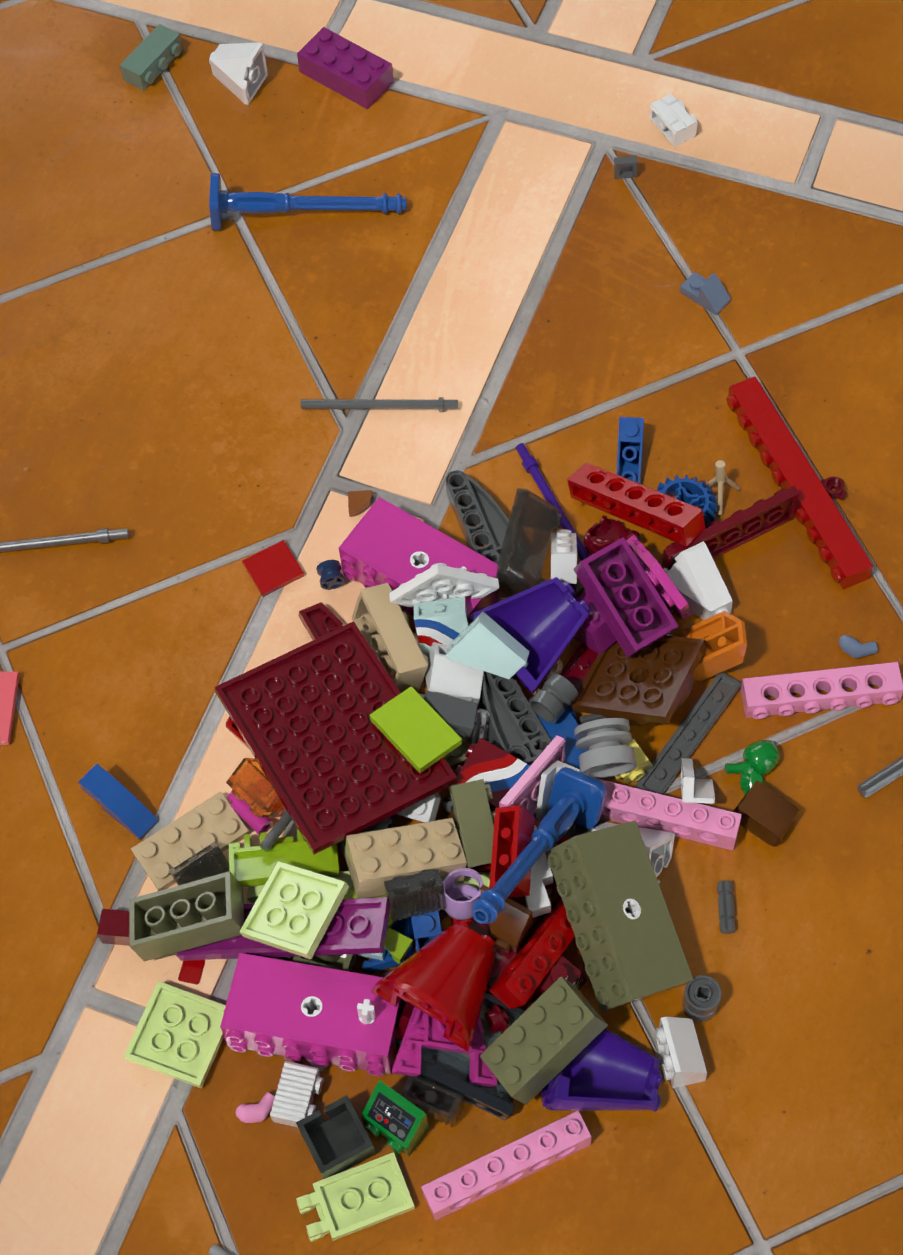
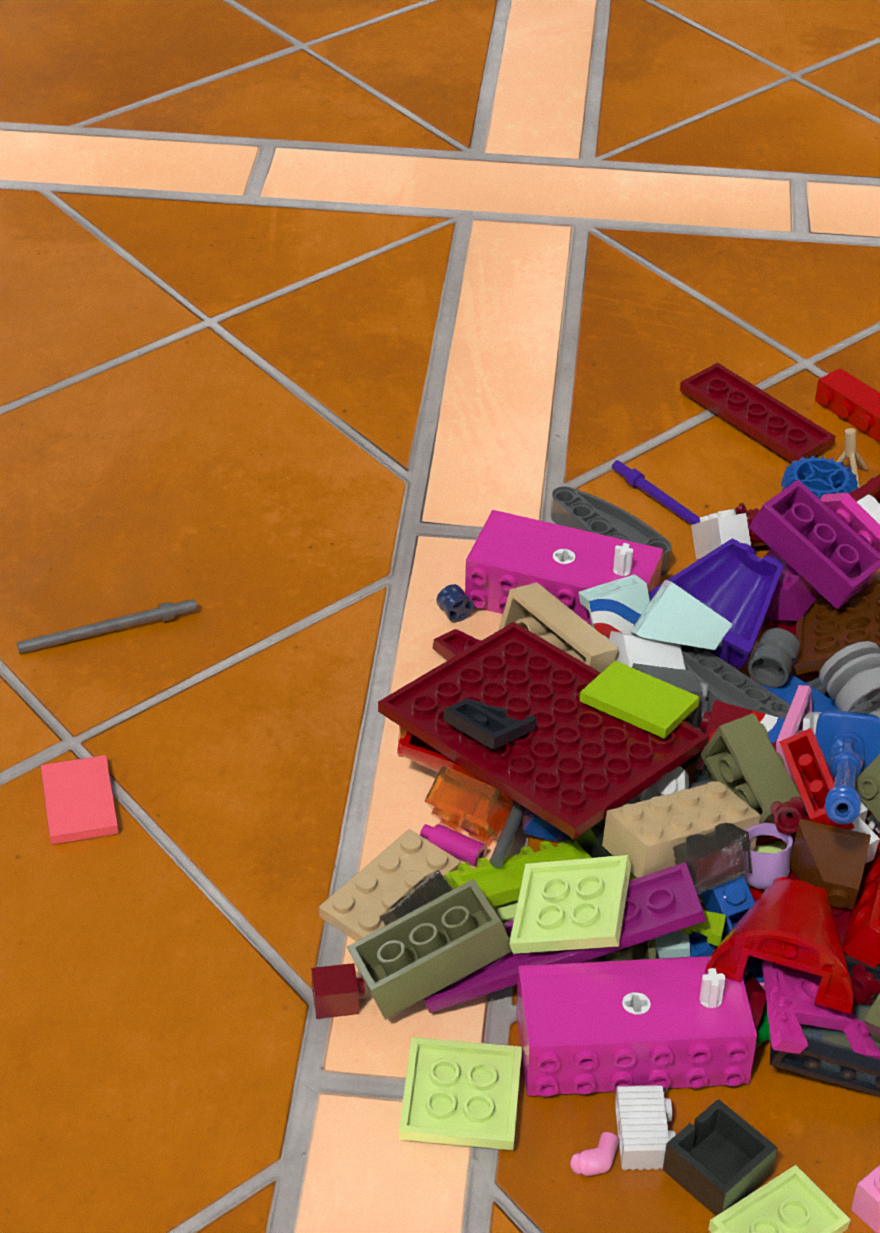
camera: 20 degrees left, 20 degrees down
(118, 801) = (284, 860): blue slope -> none
(151, 57) = (70, 210): sand green brick -> none
(191, 971) = (445, 1024): red sticker -> none
(240, 68) = (173, 205): white slope -> none
(262, 202) = (198, 306): blue piece -> none
(273, 568) = (381, 612): red piece -> none
(285, 733) = (487, 723): none -> black wing
(345, 67) = (288, 194): magenta brick -> none
(359, 501) = (456, 537): dark orange tile -> none
(394, 1119) = (789, 1114): slope -> none
(434, 1099) = (821, 1091): clear smoke brick -> none
(439, 404) = (510, 443): dark grey bar -> none
(443, 583) = (611, 556): white plate -> none
(479, 873) = (782, 821): none -> dark red plate
(525, 544) = (676, 517): clear smoke windscreen -> none
(625, 167) = (618, 234): dark grey plate -> none
(630, 448) = (738, 449): blue slope -> none
(636, 504) = (767, 477): red brick -> none
(665, 410) = (757, 413): none -> dark red plate
(673, 120) = (648, 195): white brick -> none
(706, 292) = (753, 319): sand blue slope -> none

